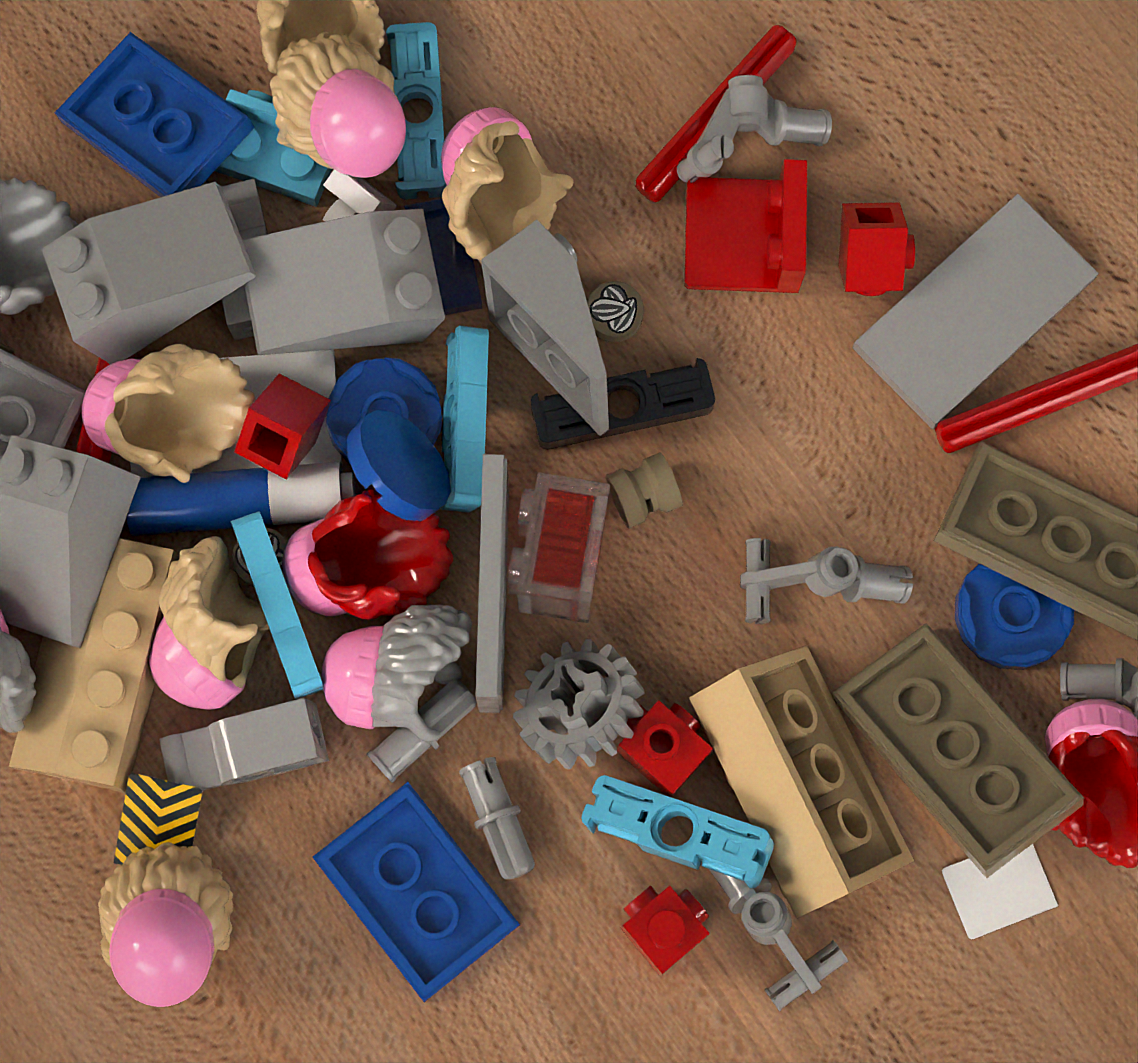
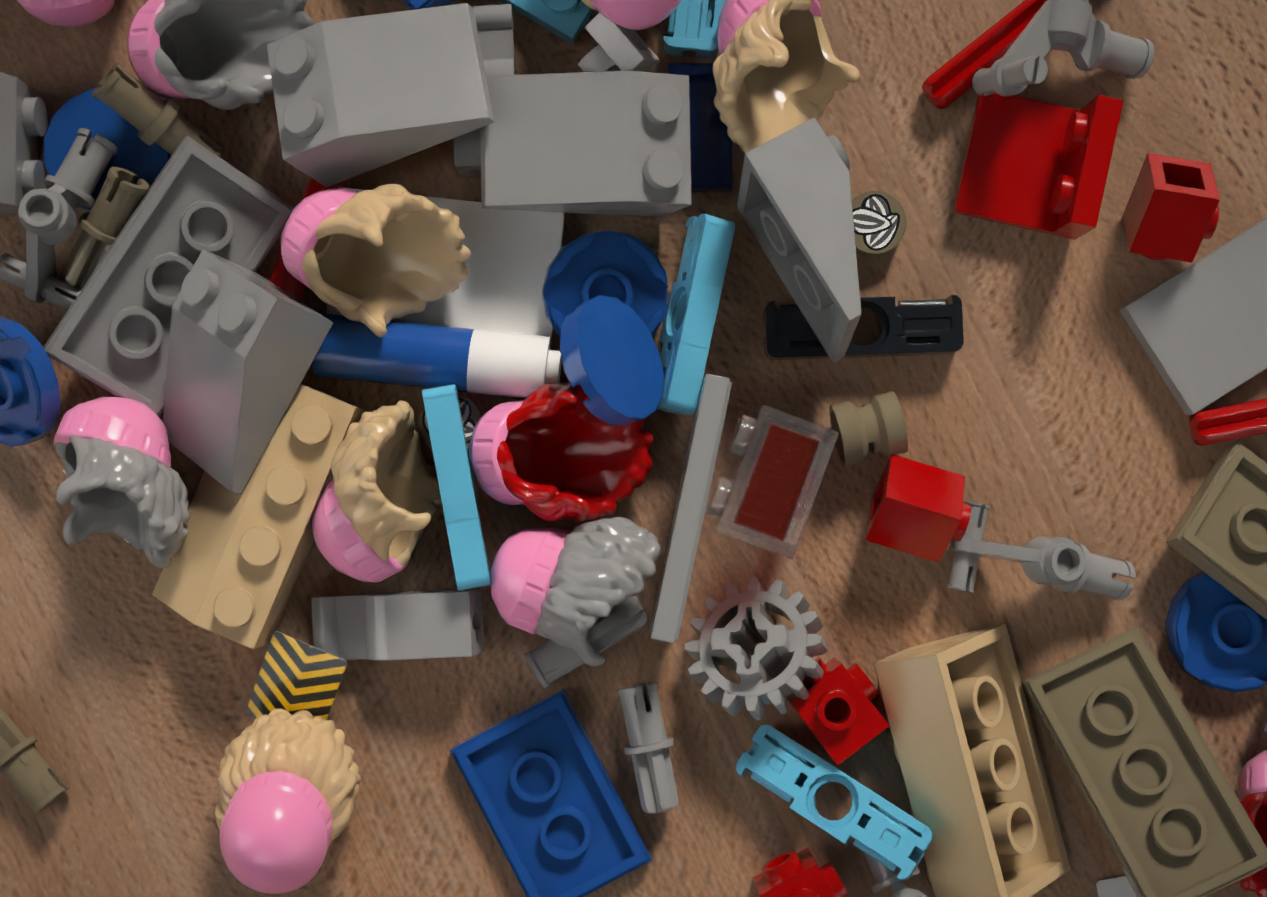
camera: 10 degrees right, 10 degrees up
(282, 426) = (494, 291): red brick -> none
(702, 551) = (917, 509): none -> red brick

